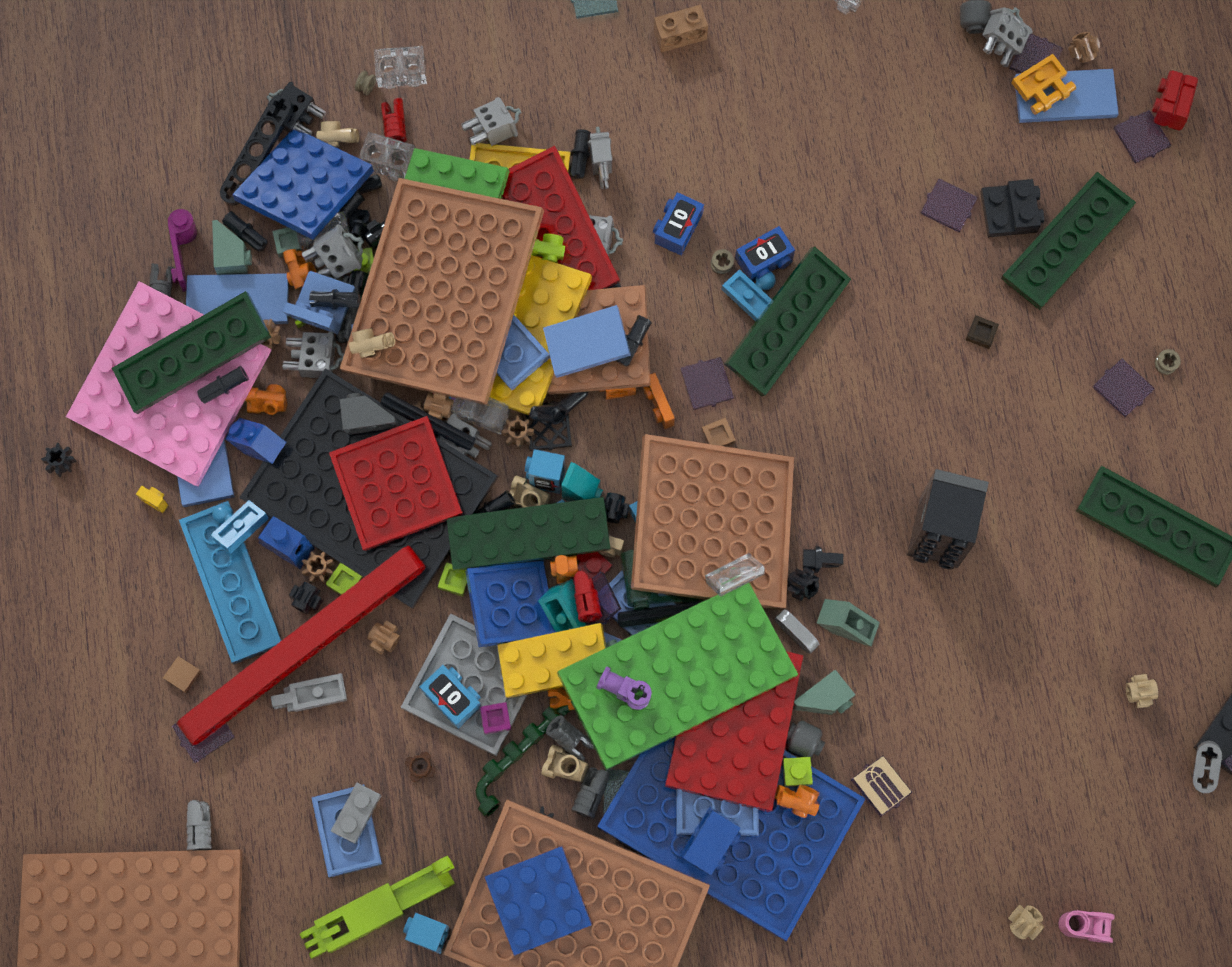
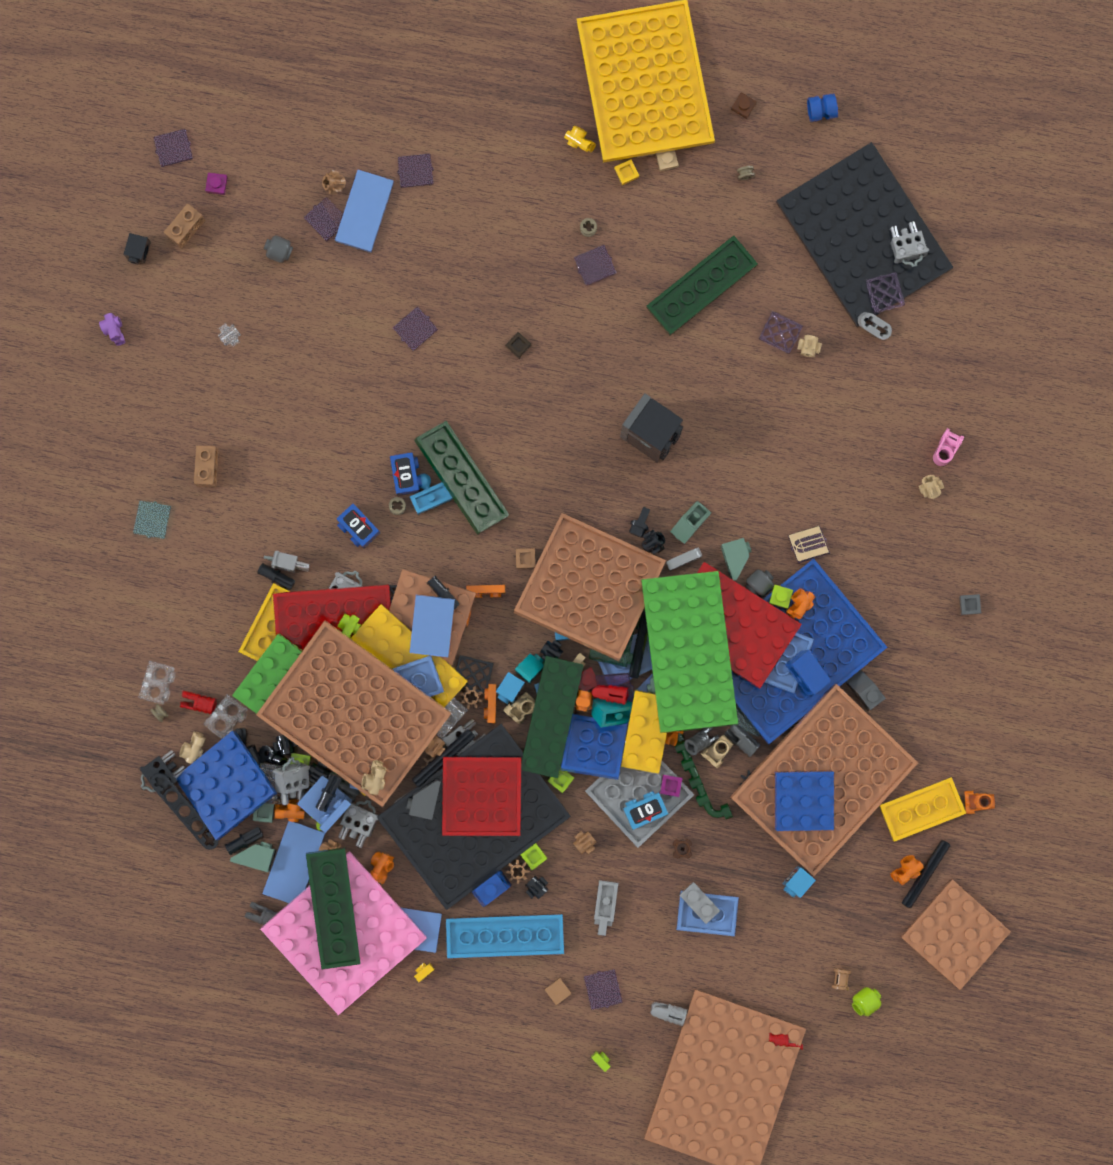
camera: 70 degrees left, 10 degrees up
(58, 452) = (368, 1035): black gear -> none
(108, 760) = (601, 1059): none -> lime plate
(181, 231) = (225, 886): magenta door -> none
(222, 385) = (365, 893): black axle -> none
(236, 526) = (469, 917): dark azure plate -> none
(255, 440) = (411, 884): blue brick -> none
(300, 645) = (571, 901): red beam -> none
(378, 908) = (767, 909): lime hinge -> none
(492, 123) = (228, 630): light grey piece -> none
(500, 503) = (520, 732): black axle -> none
(509, 462) = (490, 712): none -> orange plate
(556, 412) = (467, 666): black piece -> none
(625, 689) = (690, 691): medium lavender connector -> none
(707, 383) = (483, 551): clear purple piece -> none
(718, 932) = (865, 690): none -> dark grey slope
(734, 574) = (634, 586): clear plate -> none
(1006, 33) = (302, 233): light grey piece -> none
(1012, 208) = (435, 286): black plate -> none
(1040, 77) = (347, 226): light orange plate -> none
(1068, 240) = (475, 257): dark green plate -> none
(1143, 631) = (776, 344): none -> clear purple window
(1175, 100) = (399, 136): red brick -> none

